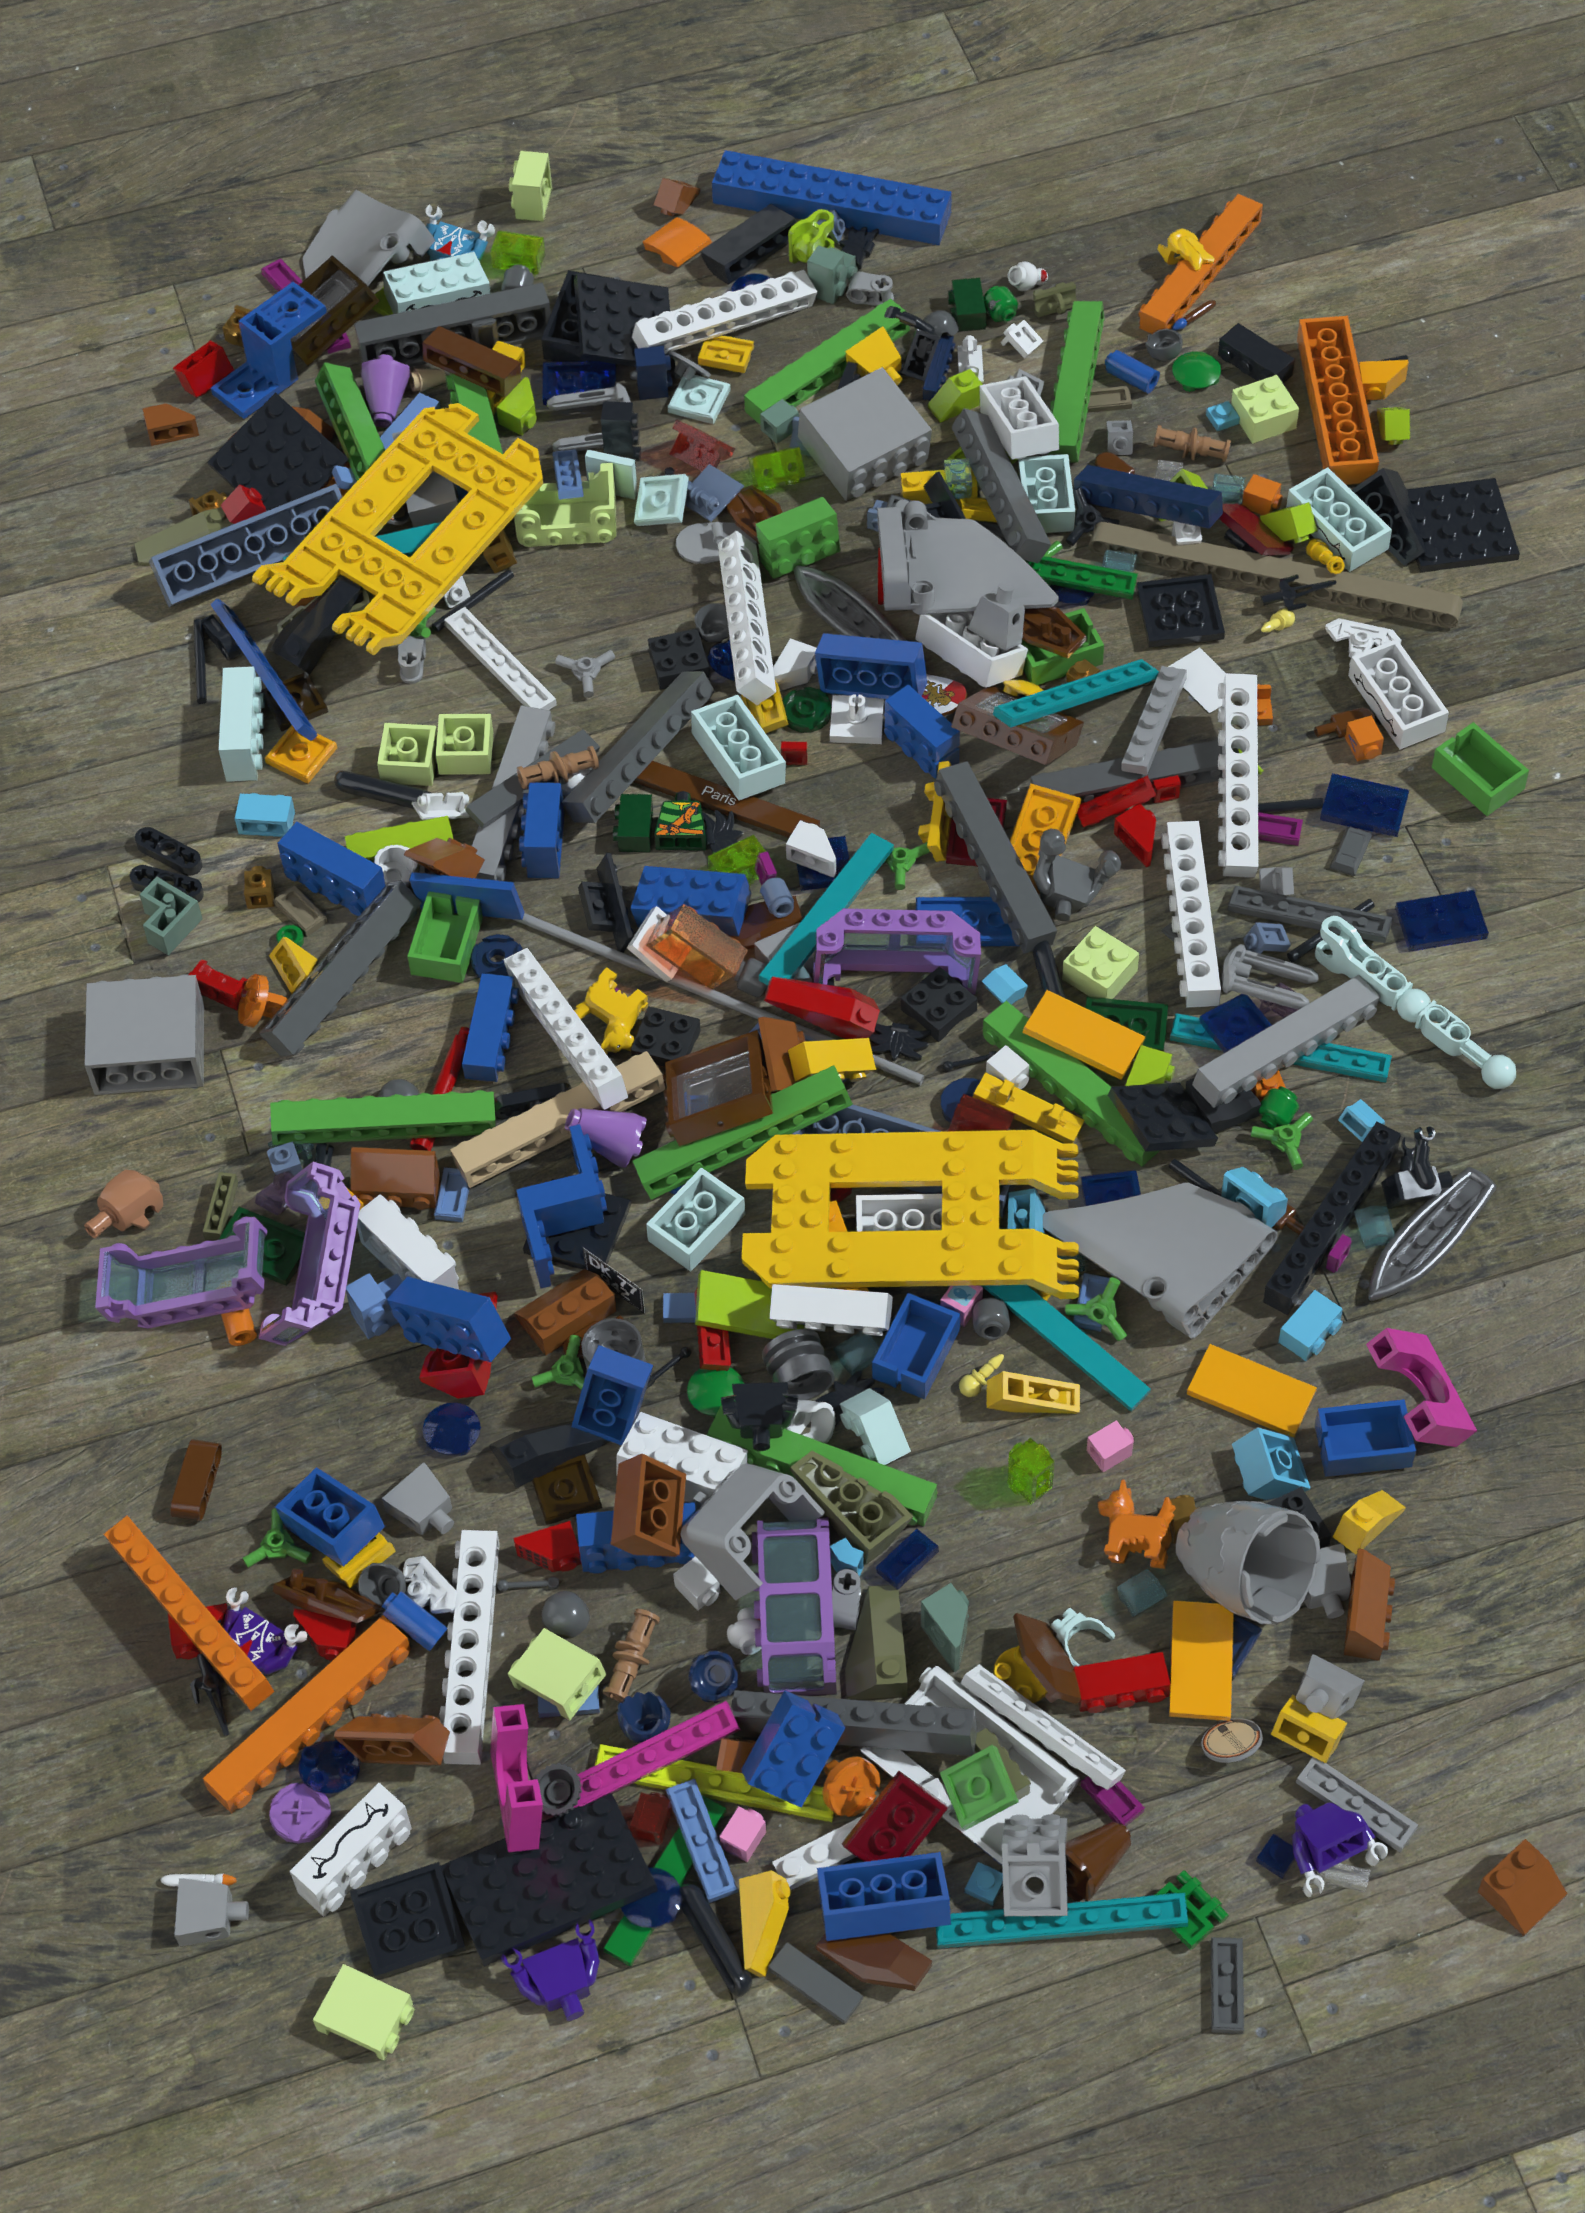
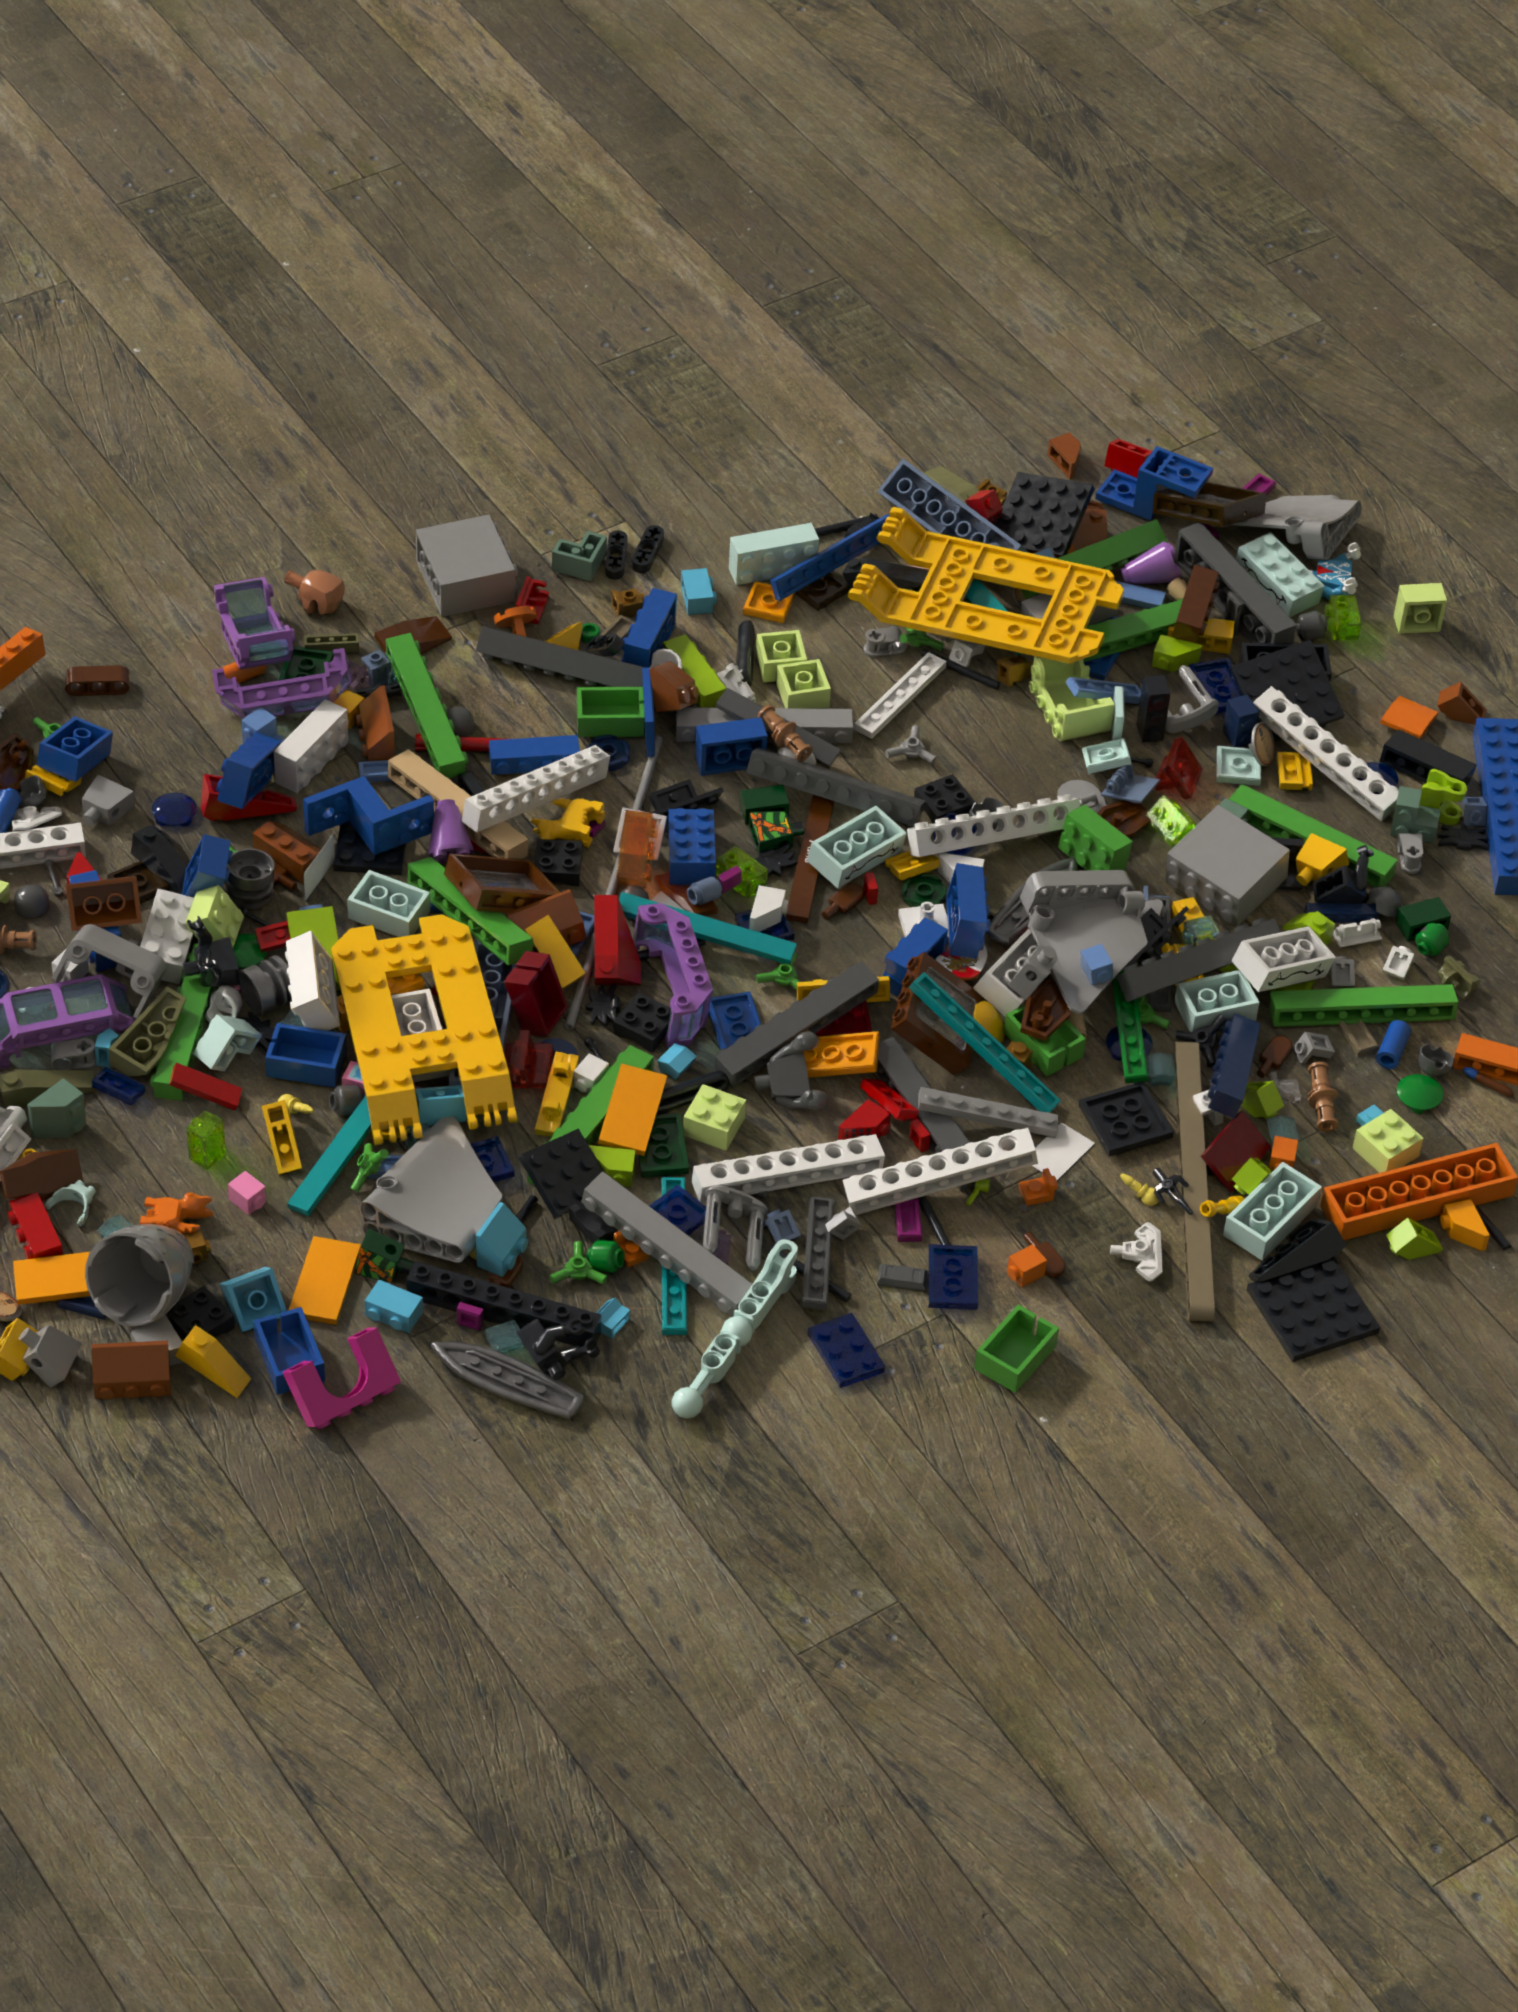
camera: 70 degrees right, 10 degrees down
(238, 1117) = (427, 631): none -> reddish brown piece
(328, 920) = (605, 645): none -> black beam
(678, 1403) = (217, 913): none -> yellowish green brick
(800, 784) = (844, 900): none -> reddish brown piece
(897, 1090) = (536, 993): none -> dark red piece
(940, 1460) = (205, 1086): none -> red tile
(1010, 562) = (1096, 964): none -> medium blue brick
(1025, 276) = (1473, 951): white animal -> none
(1248, 1313) = (381, 1258): none -> dark green torso
(1254, 355) = (1451, 1127): black brick -> none
(1398, 694) = (1082, 1279): white brick -> none

